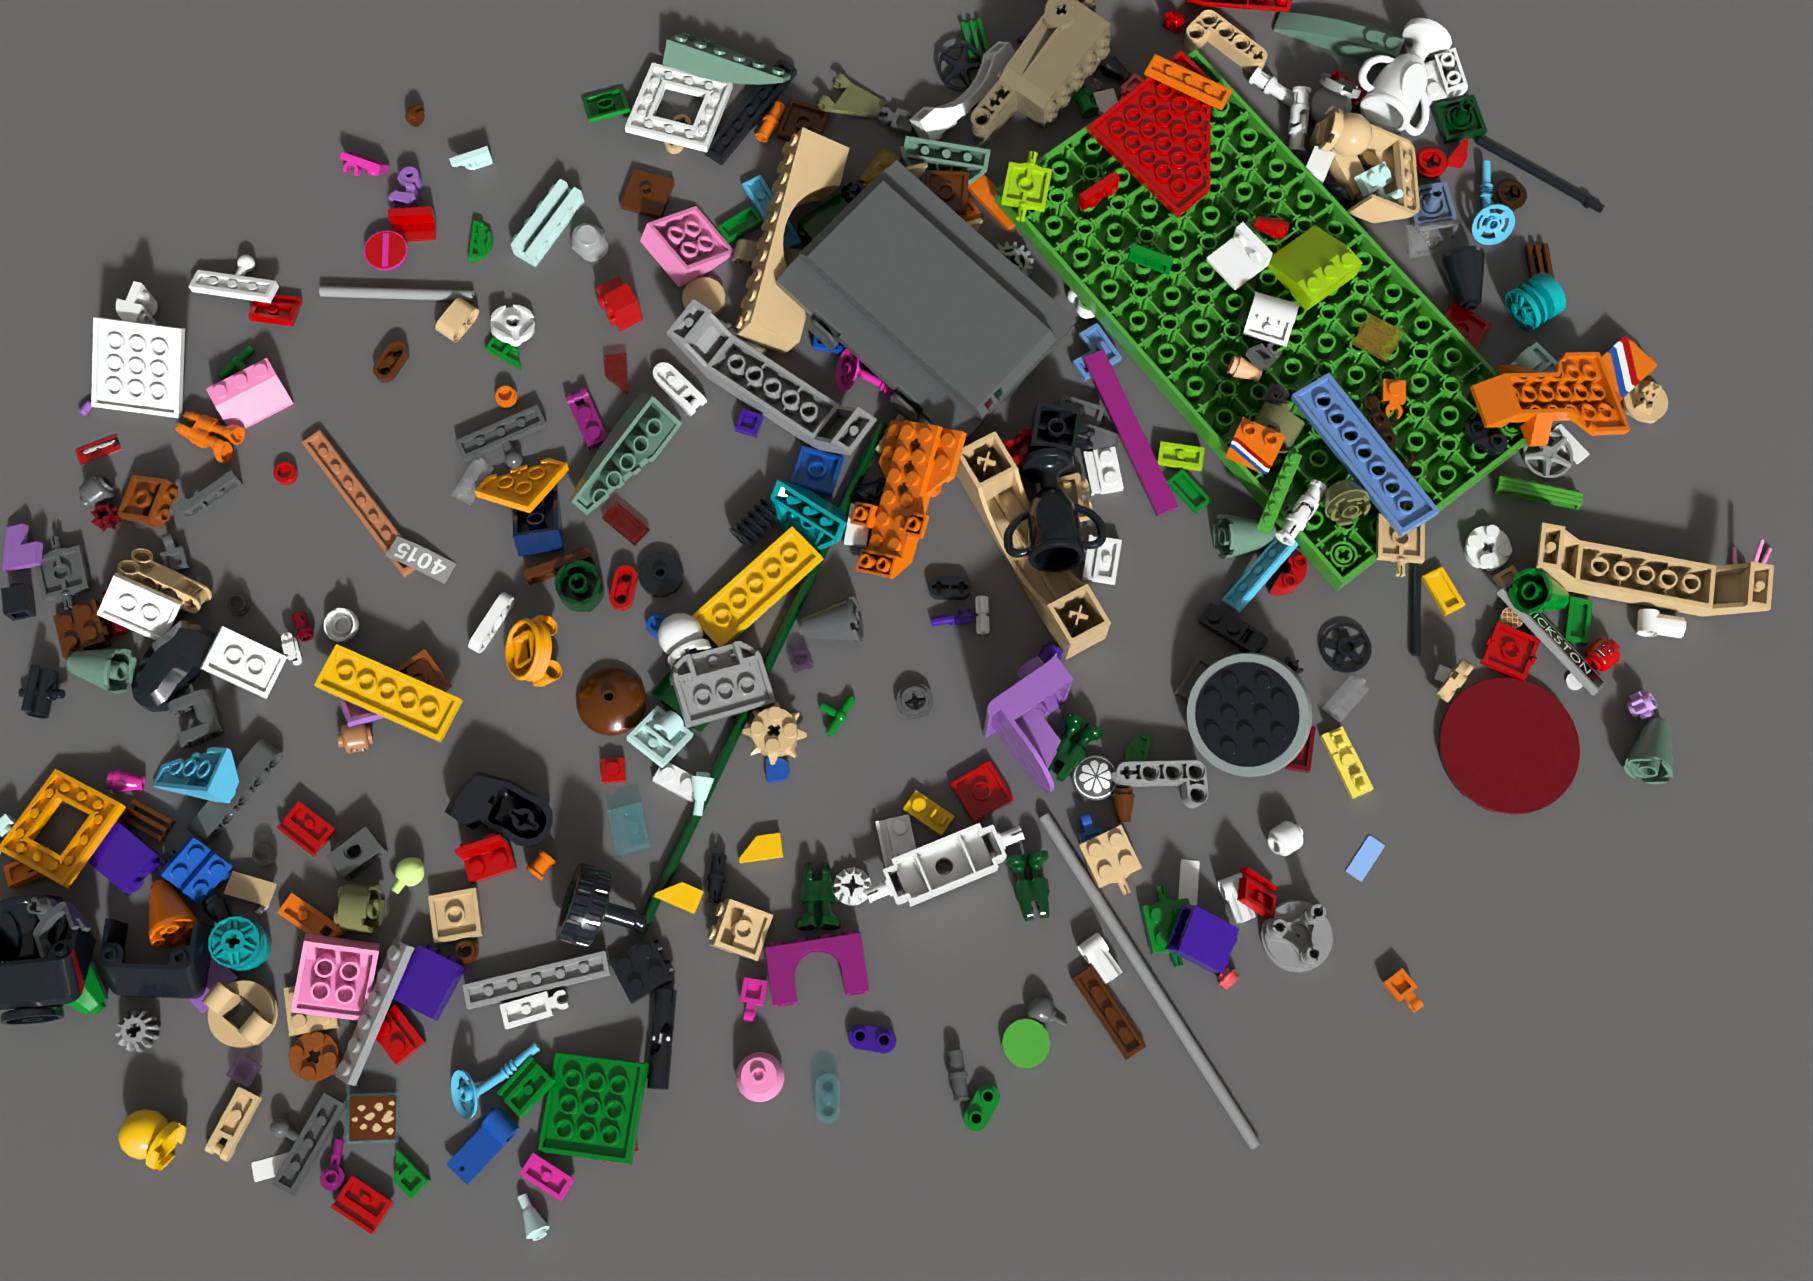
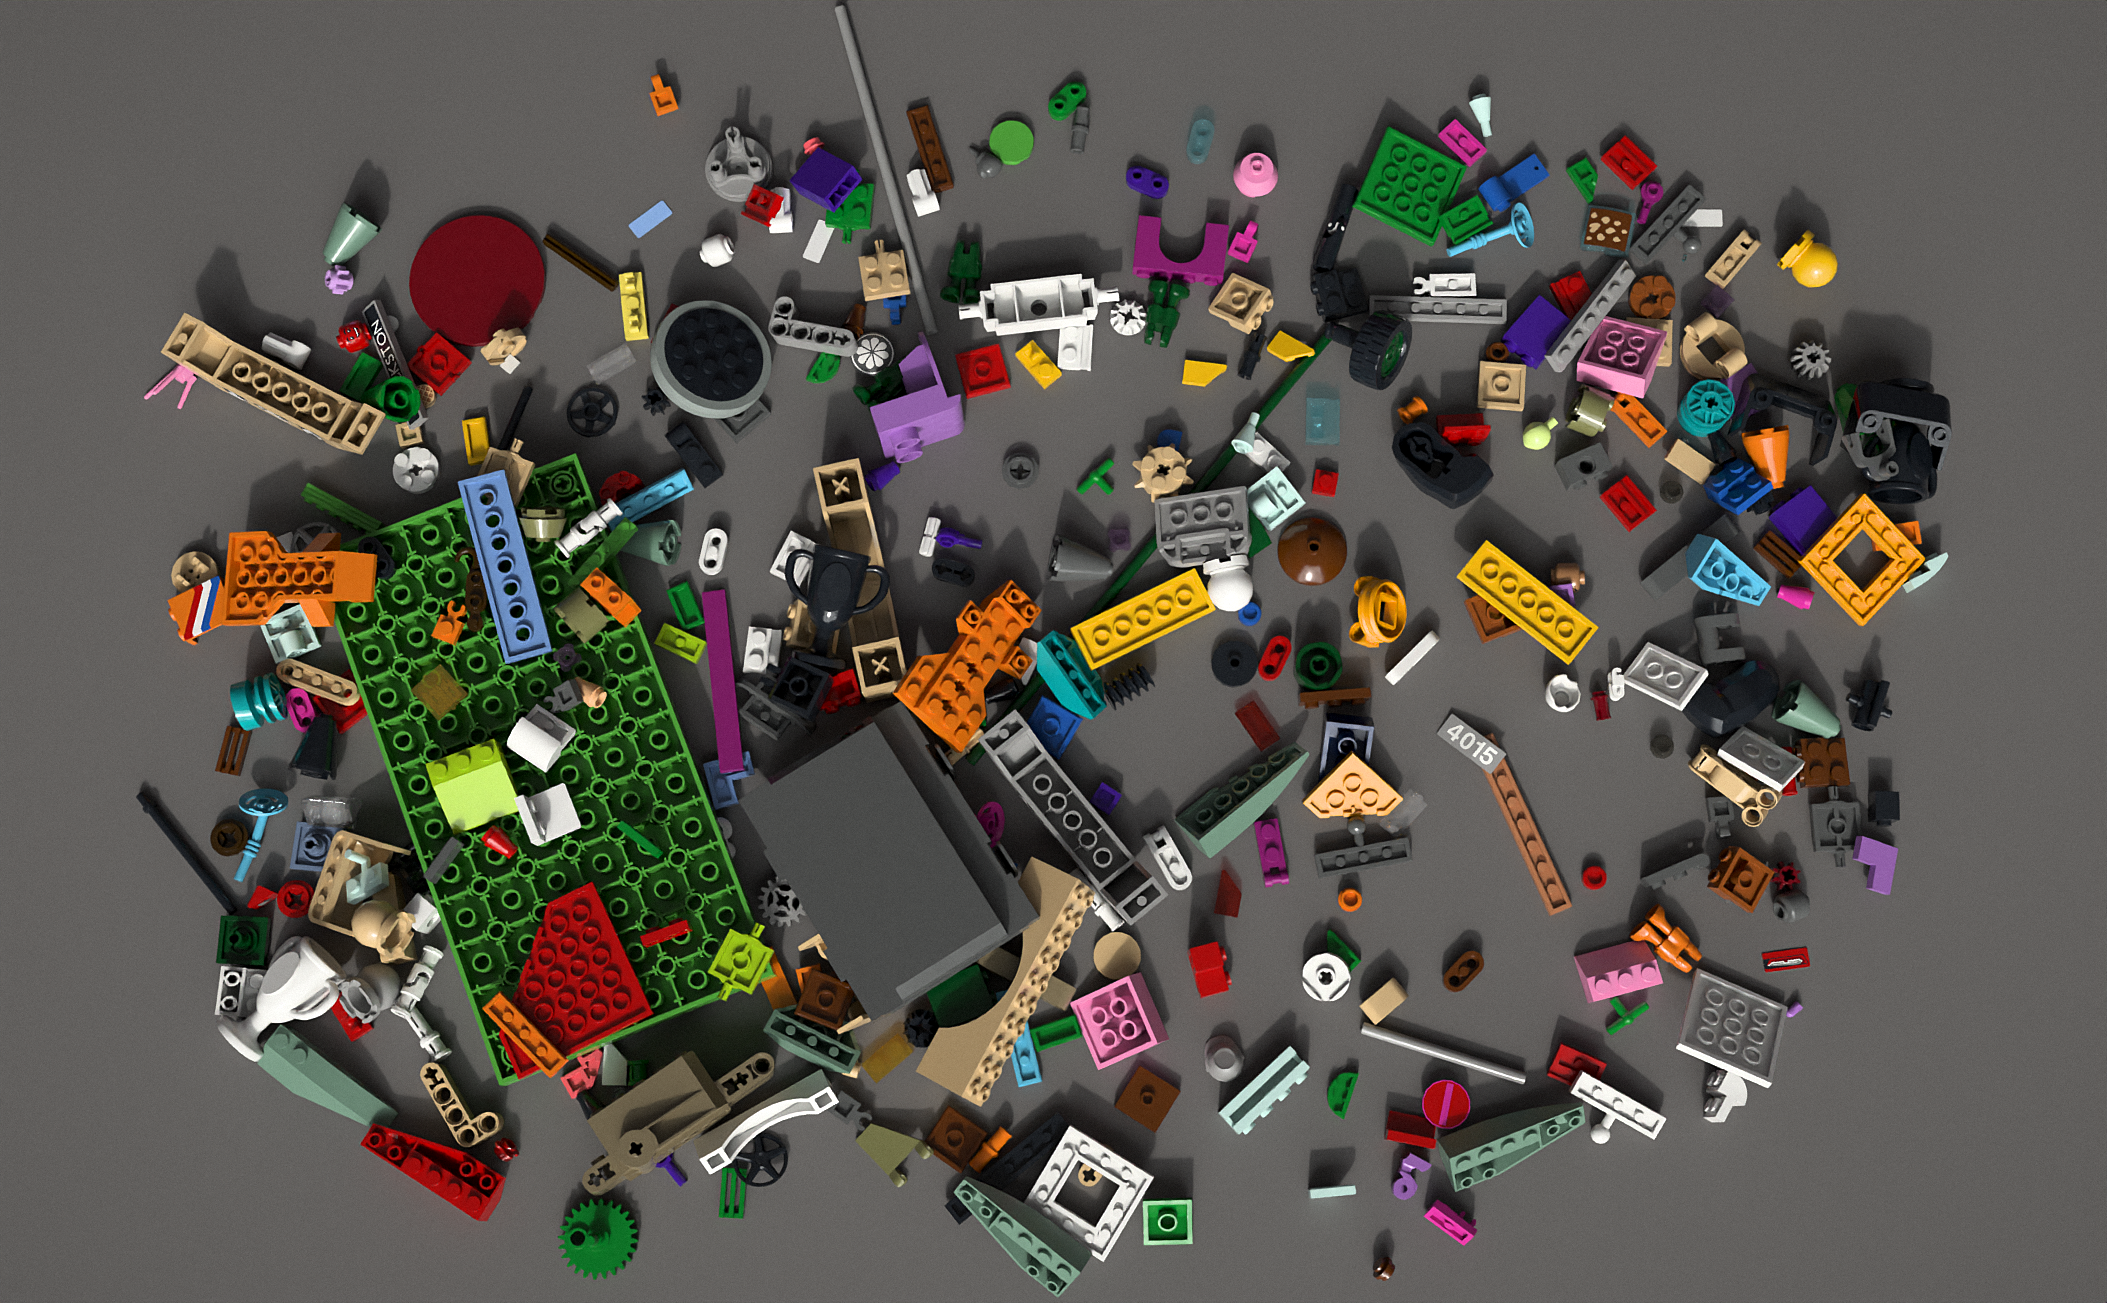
camera: 160 degrees left, 5 degrees up
(329, 235) = (1504, 1141): none -> sand green wedge
(1181, 547) = (713, 552): none -> white plate
(1314, 199) = (443, 860): none -> dark grey tile
(1416, 791) = (580, 262): none -> dark brown axle
(1494, 334) = (318, 682): none -> tan plate
(1496, 310) = (300, 712): none -> dark pink plate

